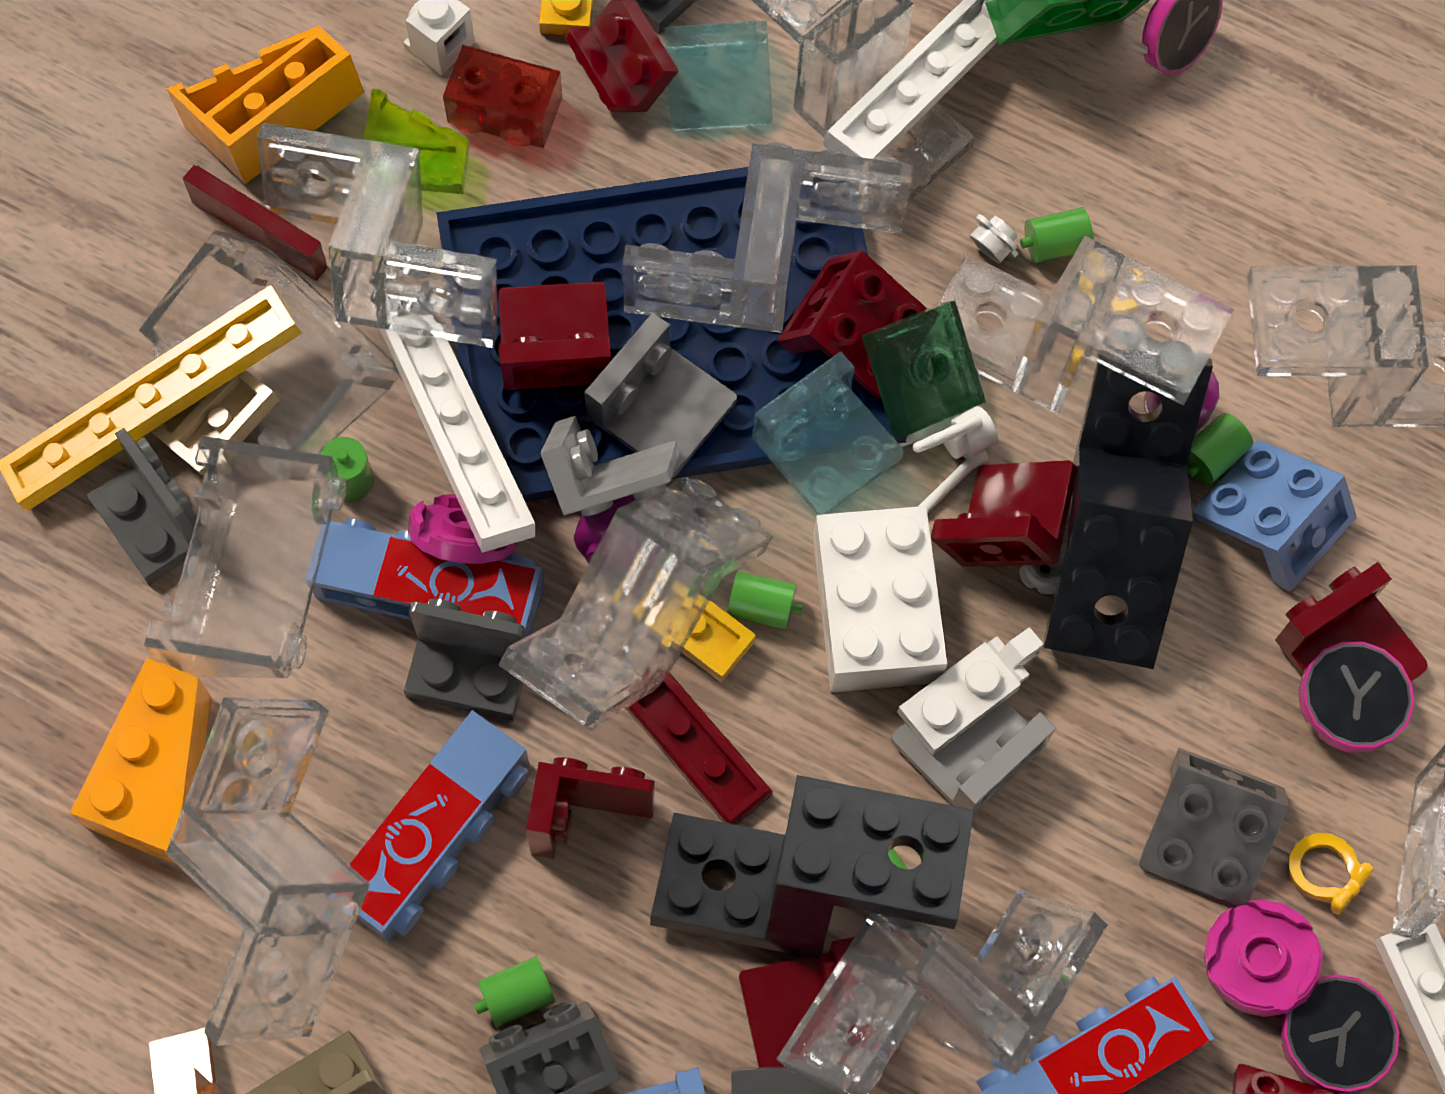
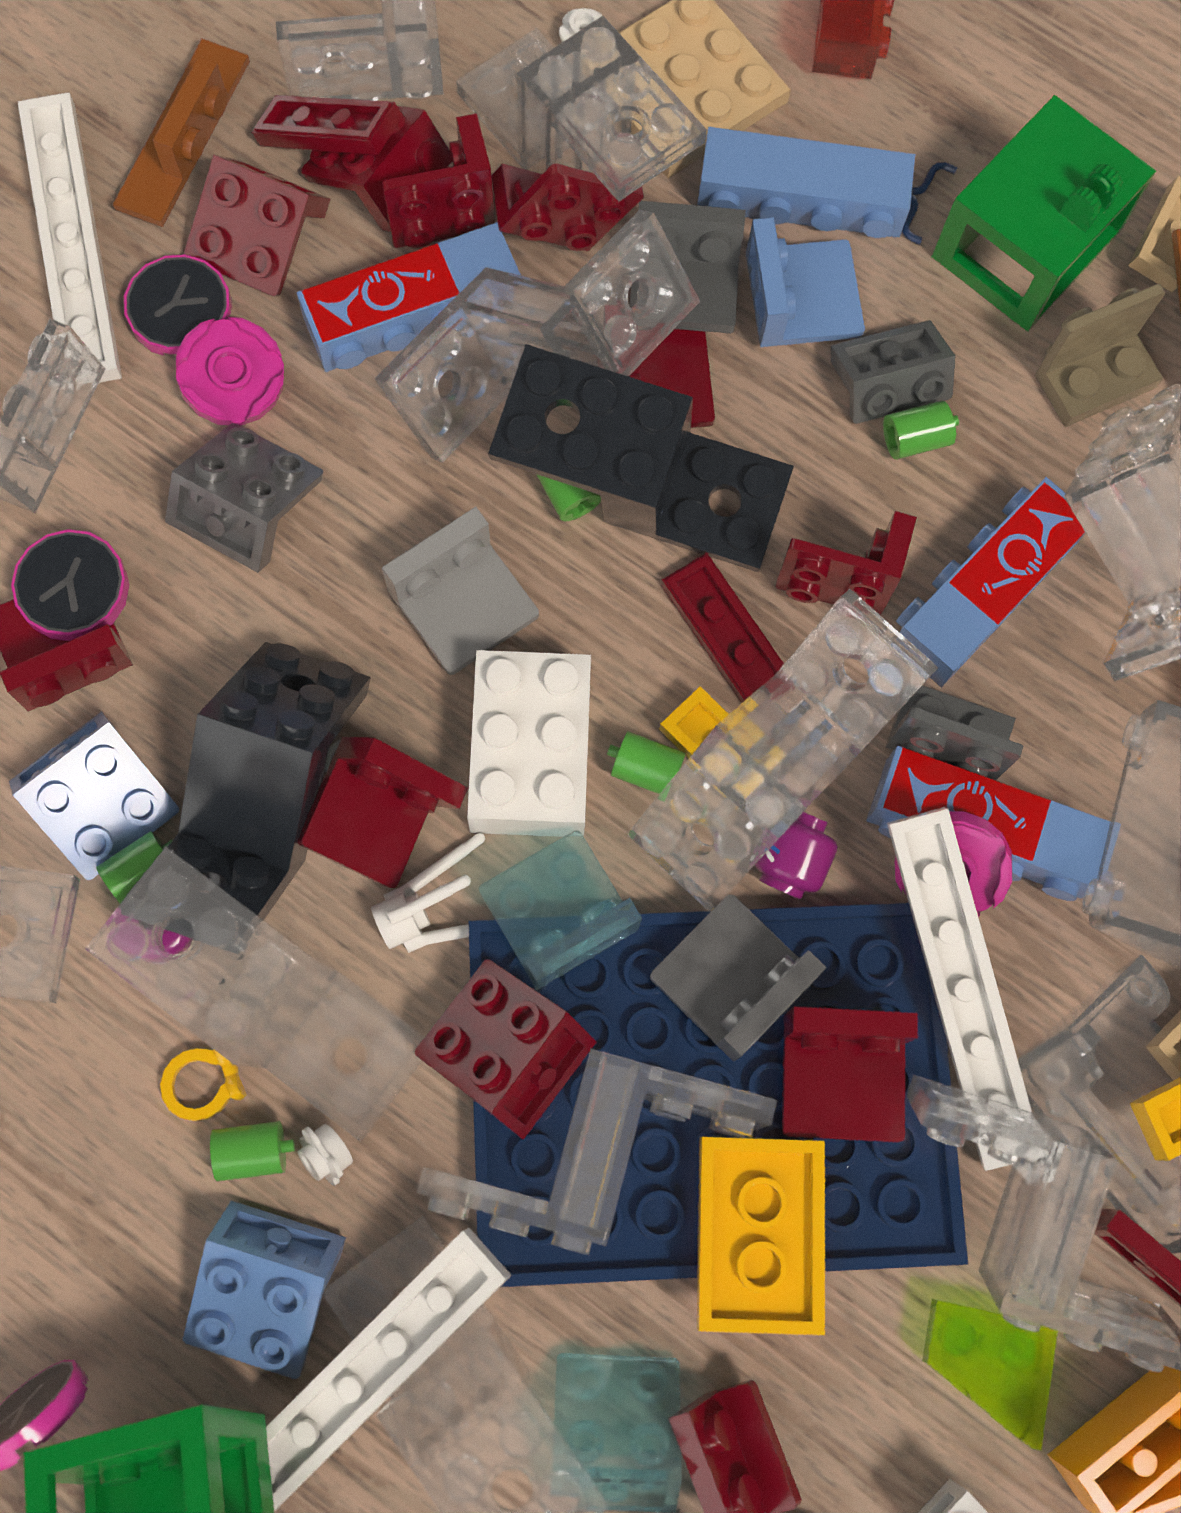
camera: 175 degrees left, 5 degrees up
(352, 465) = (1073, 956): bright green piece -> none
(502, 97) = (882, 1422): clear red brick -> none
(591, 488) = (809, 874): light grey bracket -> none
(613, 199) = (761, 1236): none -> yellow plate
(924, 368) = (439, 982): clear green plate -> none
(969, 690) = (451, 640): white hinge -> none
(1022, 142) = (261, 1288): none -> medium blue bracket
(1338, 897) = (145, 415): yellow piece -> none

